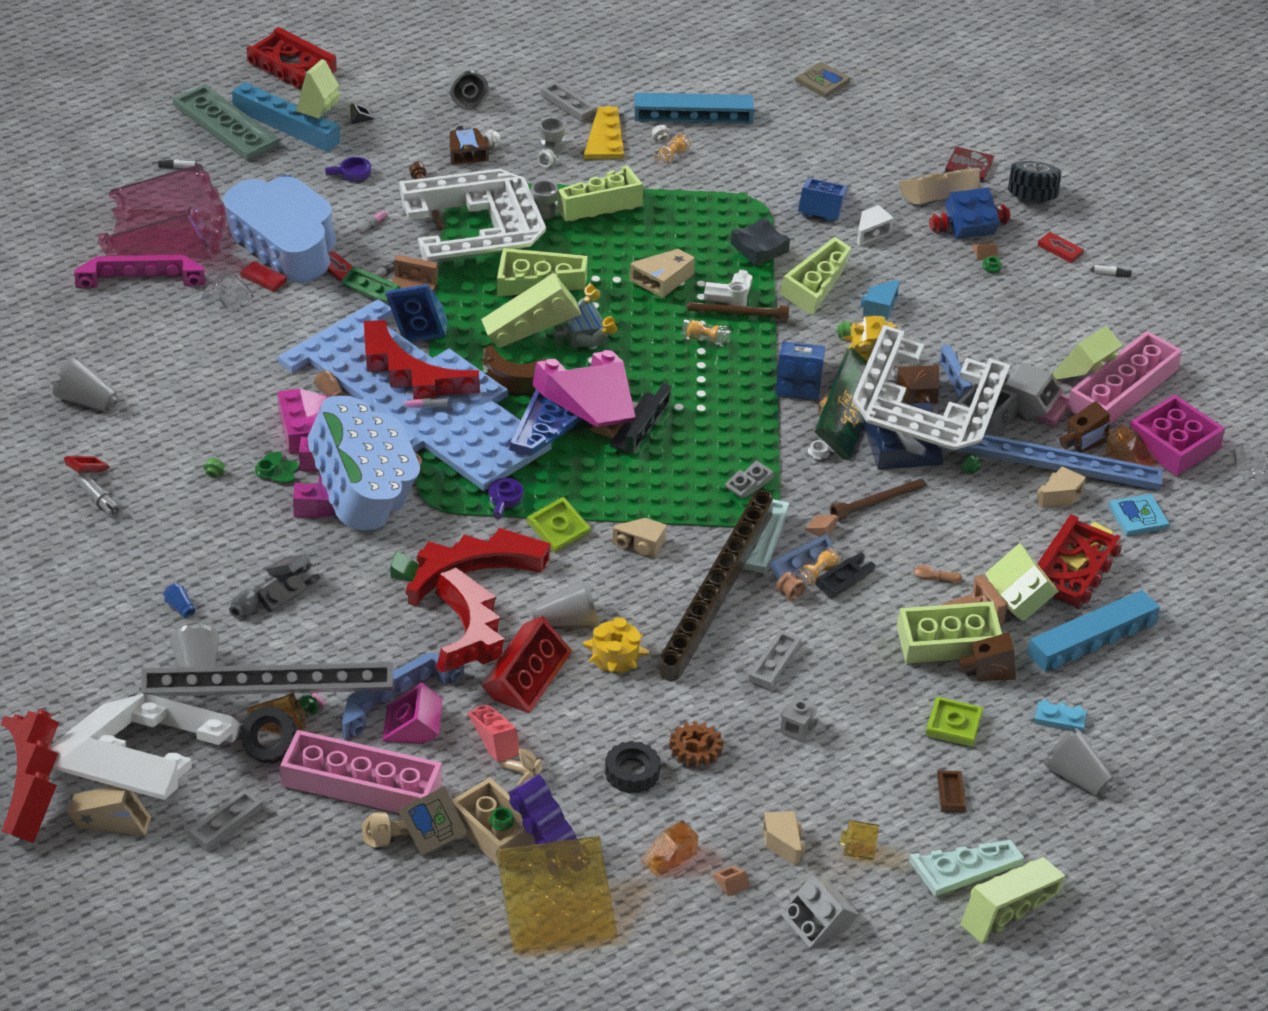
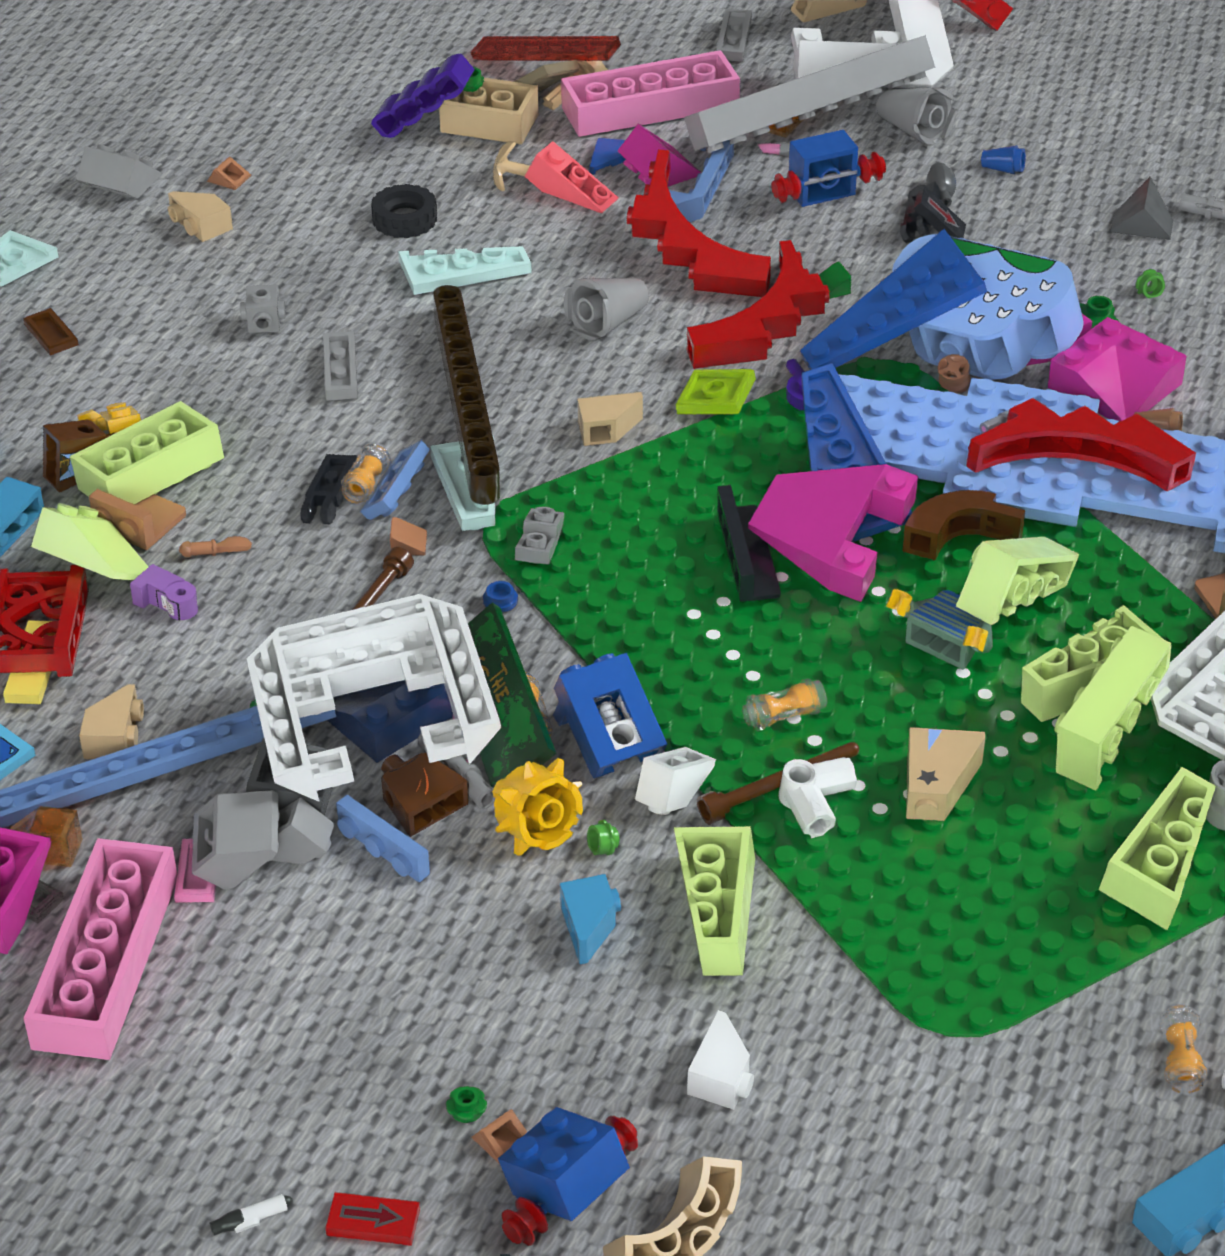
camera: 150 degrees right, 0 degrees up
(157, 513) = (1143, 214): none -> dark grey slope
(250, 730) = (760, 80): black tyre -> none
(309, 703) = (774, 136): green plate -> none
(324, 631) = (825, 169): none -> blue brick
(401, 852) = (546, 48): none -> clear red tile
(417, 313) = (1159, 510): blue slope -> none
(417, 472) = (913, 294): none -> blue wing
(433, 750) = (606, 154): none -> blue tile
(527, 666) = (598, 239): red slope -> none
(556, 894) = (374, 77): clear yellow plate -> none
(566, 234) = (1109, 705): none -> yellowish green wedge
(616, 646) = (521, 293): yellow brick -> none
(640, 701) = (462, 268): none -> light aqua wing
(671, 848) = (301, 165): clear orange slope -> none
(696, 744) = (356, 252): dark orange gear -> none
(760, 241) = (853, 901): black brick -> none
(790, 328) = (672, 779): none -> white slope
(790, 586) = (390, 440): nougat wheel -> none
(796, 466) = (501, 594): none -> blue plate
(822, 199) = (852, 1084): blue slope -> none
(860, 839) = (116, 234): clear yellow brick -> none
(952, 677) = (114, 419): none -> yellow hinge
(954, 721) = (86, 389): lime plate -> none
(985, 550) = (166, 592): none -> medium lavender leg
(1087, 428) = (118, 815): reddish brown torso -> none
(1090, 354) = (178, 919): yellowish green slope -> none

